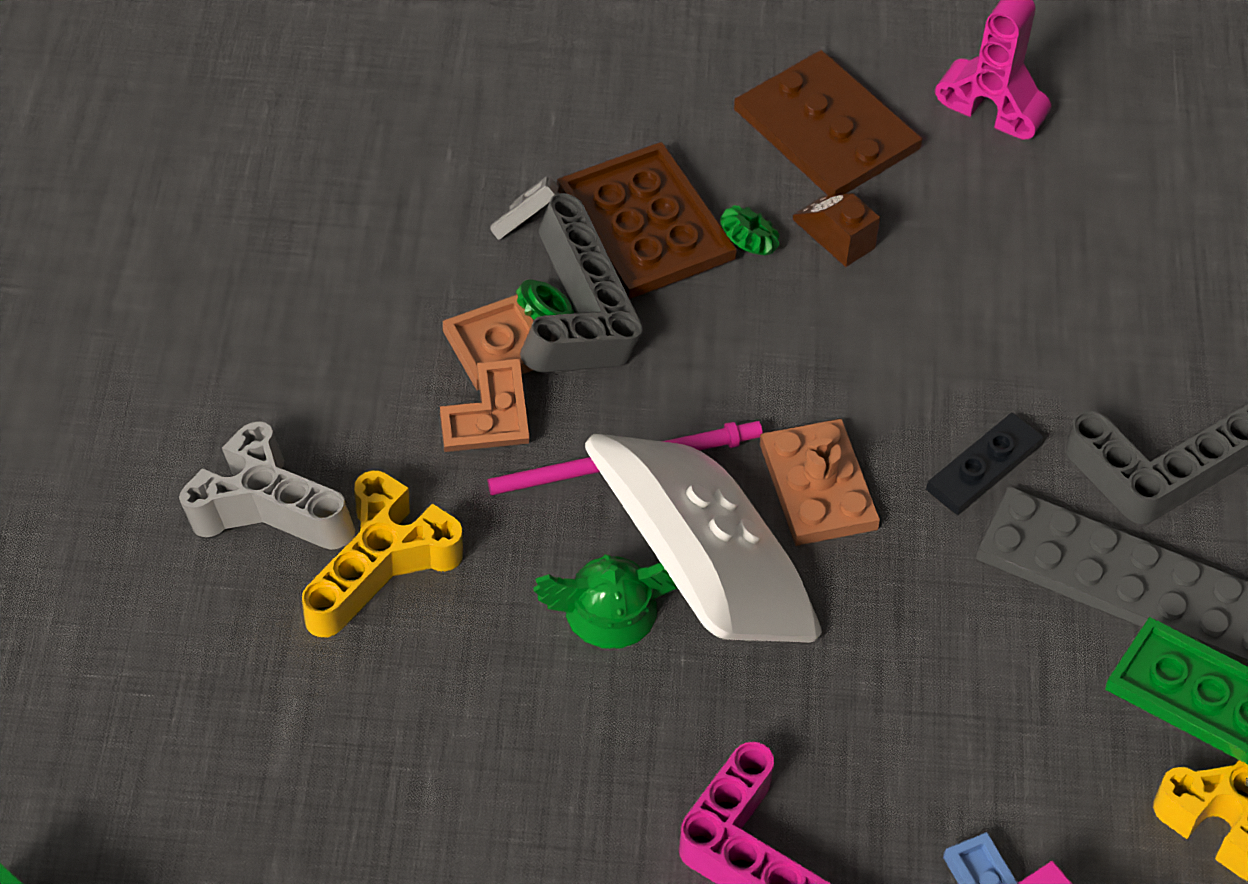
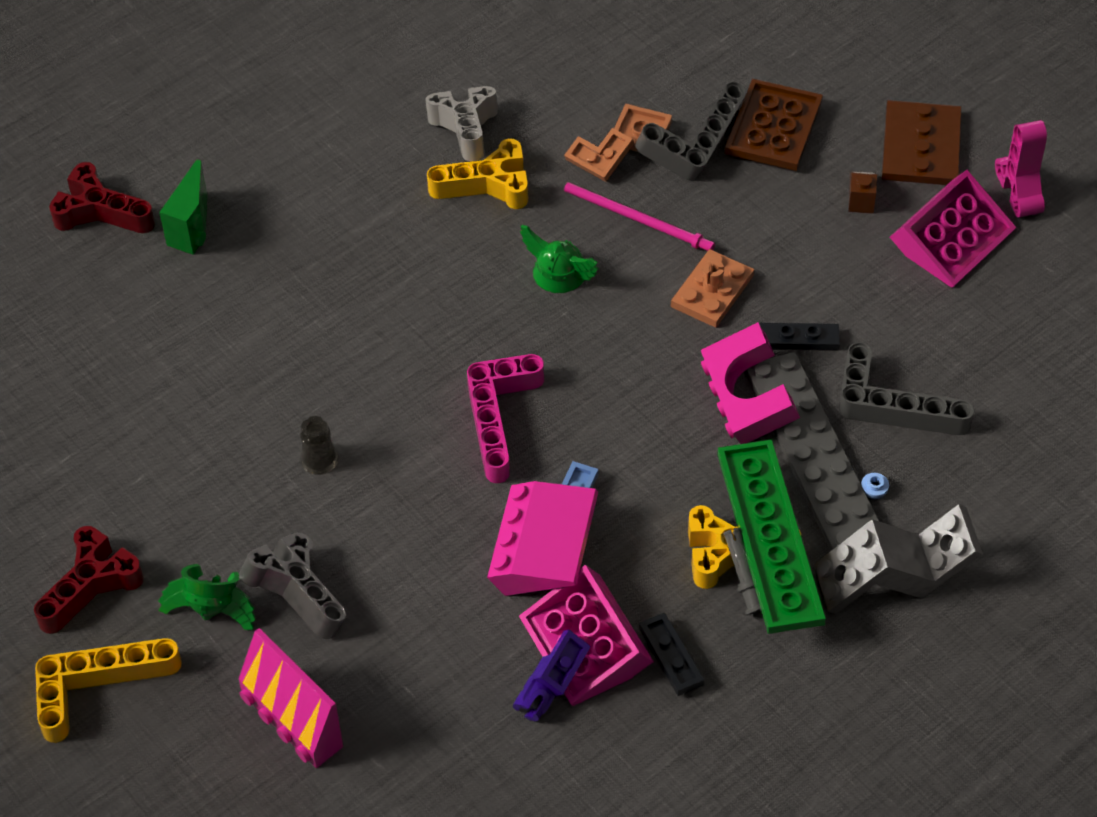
camera: 50 degrees right, 0 degrees up
(525, 206) = (721, 81): light grey tile -> none
(542, 299) = (682, 121): green gear -> none
(708, 539) = (616, 265): white wedge -> none
(749, 230) = (811, 167): green gear -> none
(990, 202) = (954, 230): none -> dark pink slope
(1063, 616) = (725, 363): none -> dark pink arch

